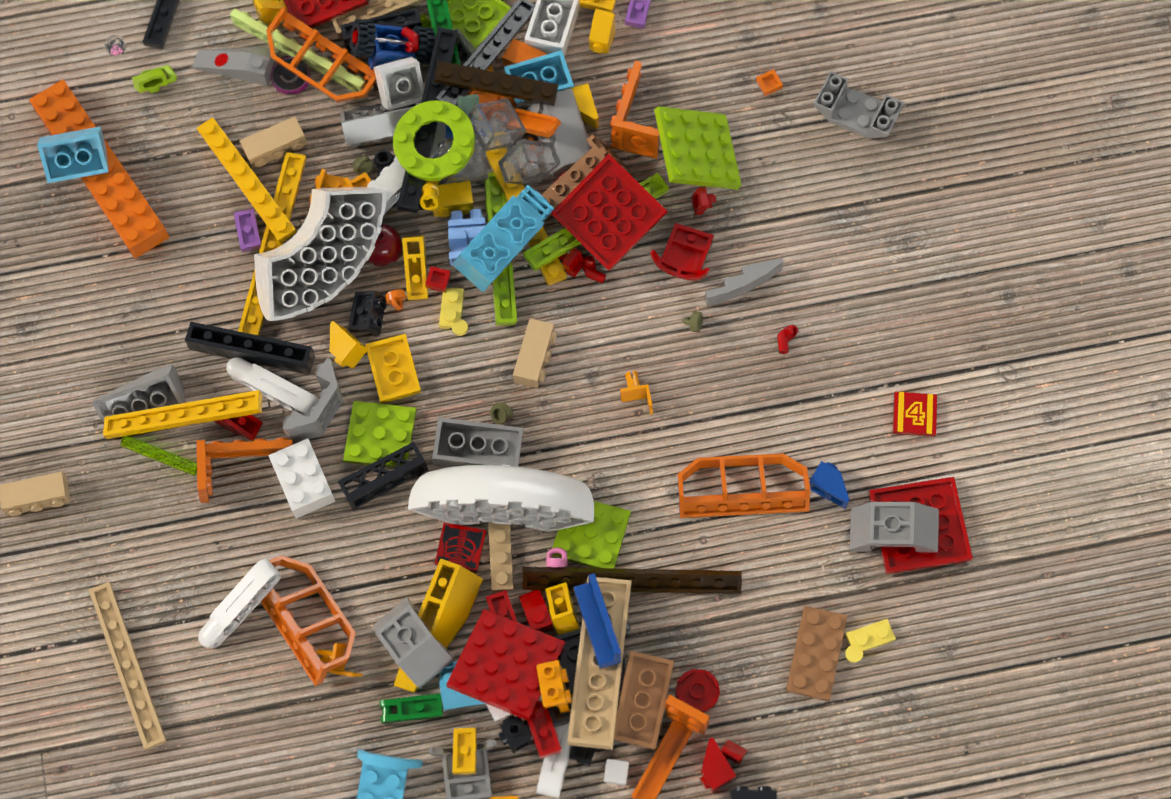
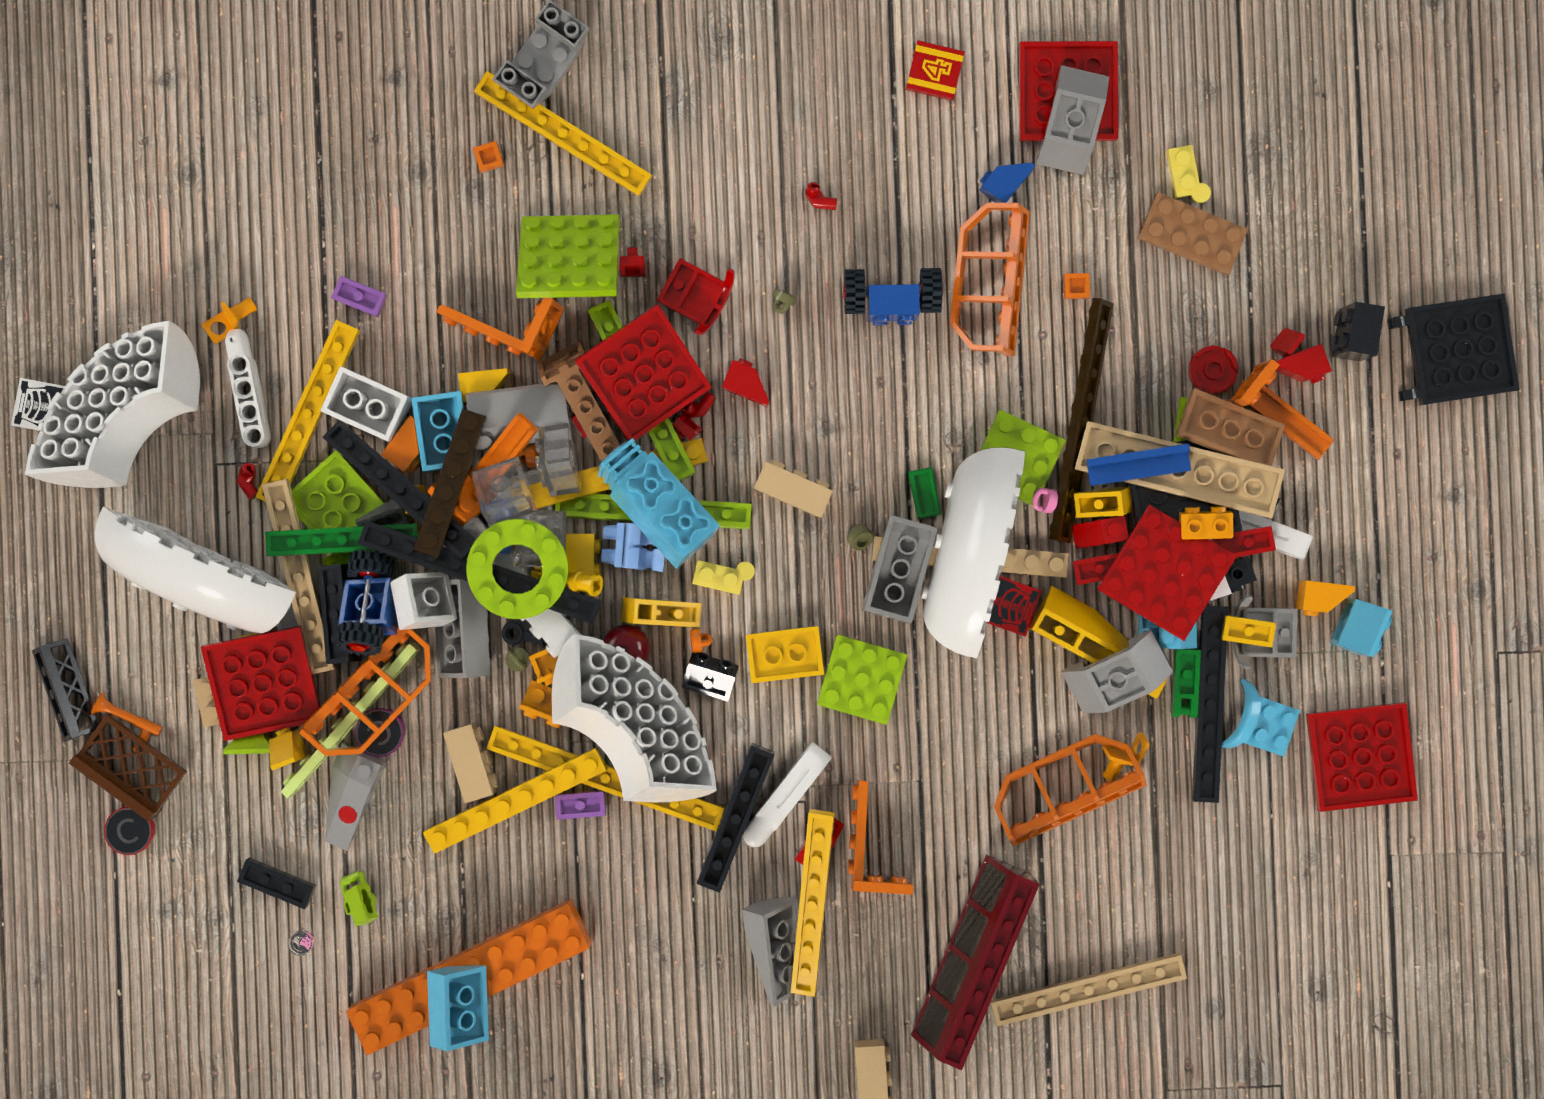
camera: 90 degrees left, 20 degrees up
(83, 541) = (974, 961): none -> dark red window
(159, 455) = (846, 933): clear neon green axle -> none
(239, 603) = (1045, 860): white piece -> none
(300, 427) = (791, 731): light grey slope -> none
(301, 478) = (904, 774): white brick -> none
(345, 346) = (749, 706): yellow slope -> none
(384, 482) = (923, 678): black fence -> none
(391, 732) = (1210, 709): none -> black plate
(413, 37) = (377, 579): red arm -> none
(438, 279) = (683, 588): red tile -> none
(467, 102) = (473, 520): sand green tile -> none
(550, 460) = (924, 493): none -> green tile
(602, 31) = (390, 346): yellow slope -> none
(616, 772) = (1293, 471): white tile -> none
(618, 302) = (745, 382): none -> red slope
(635, 391) = (857, 381): light orange bracket -> none
(705, 403) = (893, 302): none -> brick
(750, 278) = (740, 226): light grey slope -> none
(750, 558) = (1076, 285): none -> orange plate
(795, 140) = (566, 136): none -> yellow plate

